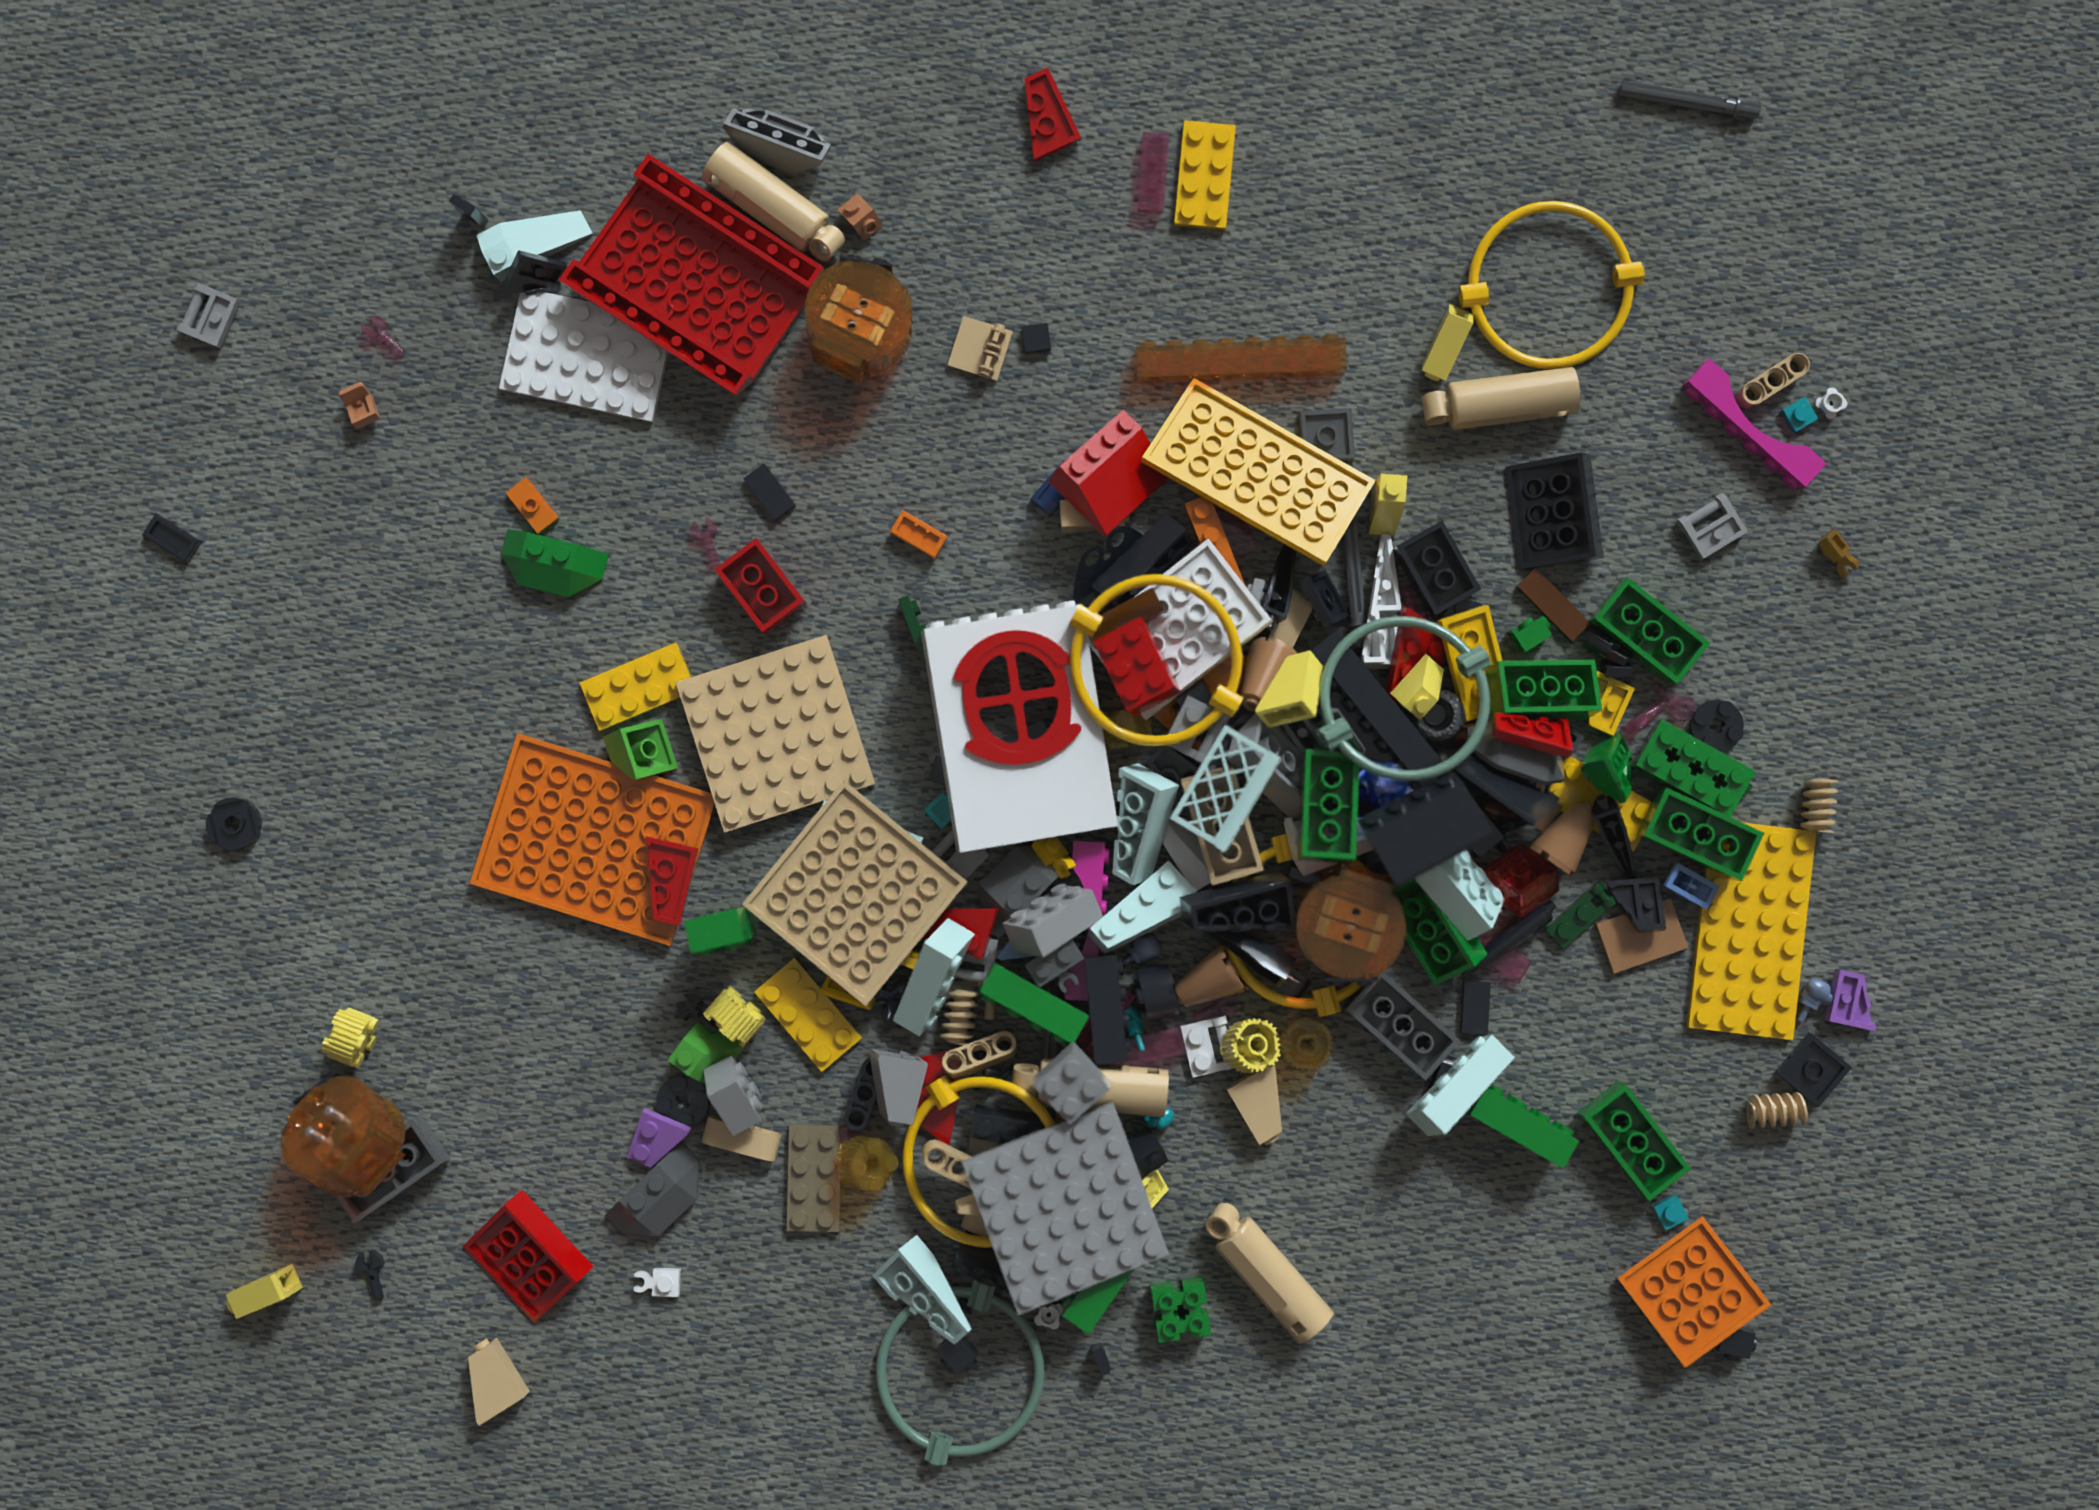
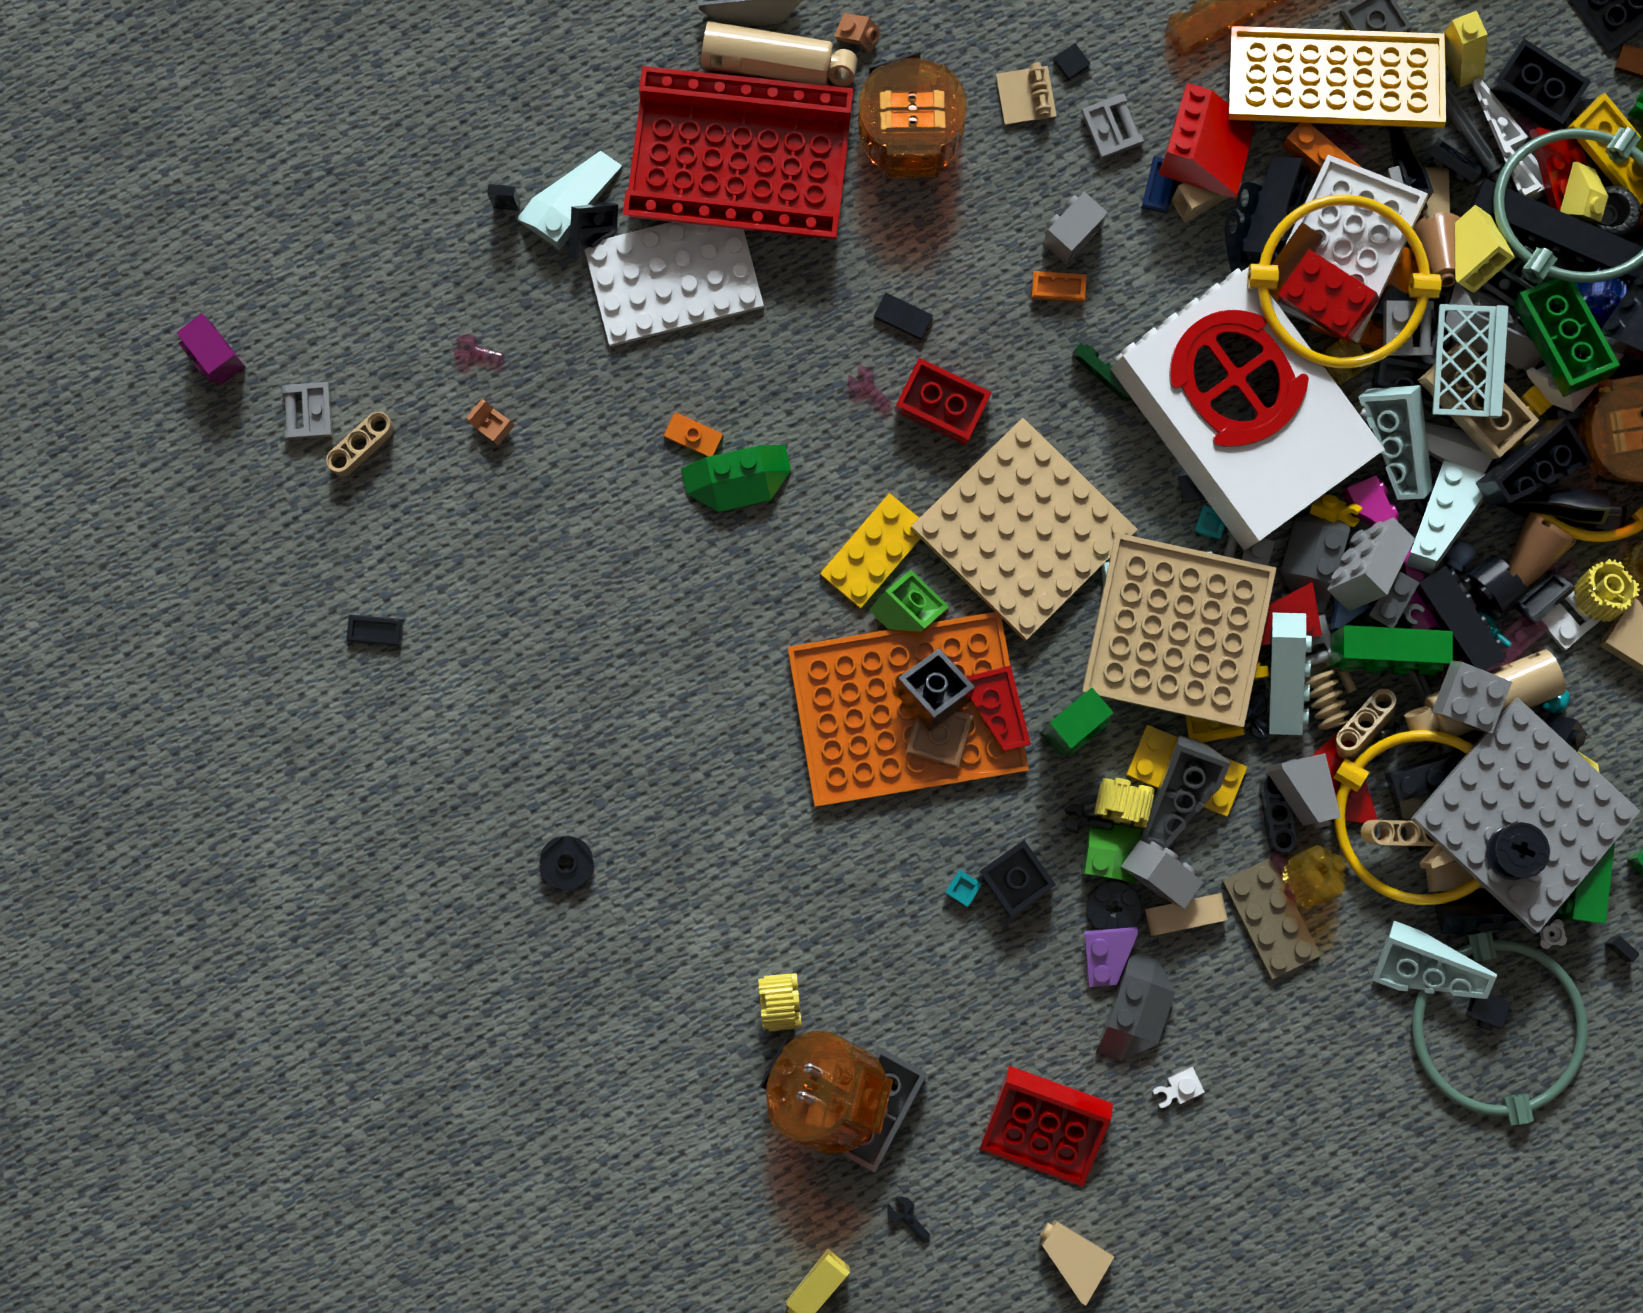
camera: 30 degrees left, 5 degrees down
(145, 219) = (207, 345): none -> magenta brick
(225, 368) = (363, 431): none -> tan beam
(562, 1018) = (963, 888): none -> teal plate
(607, 876) = (944, 742): none -> medium nougat tile
(609, 1034) = (1016, 878): none -> black brick
(616, 836) = (934, 689): none -> black brick
(794, 1030) = (1187, 784): none -> dark grey wedge
(955, 489) = (1075, 227): none -> light grey brick
(1019, 1243) = (1528, 841): none -> black piece
(1032, 414) = (1105, 130): none -> light grey plate
(1196, 1023) = (1544, 597): none -> black tile

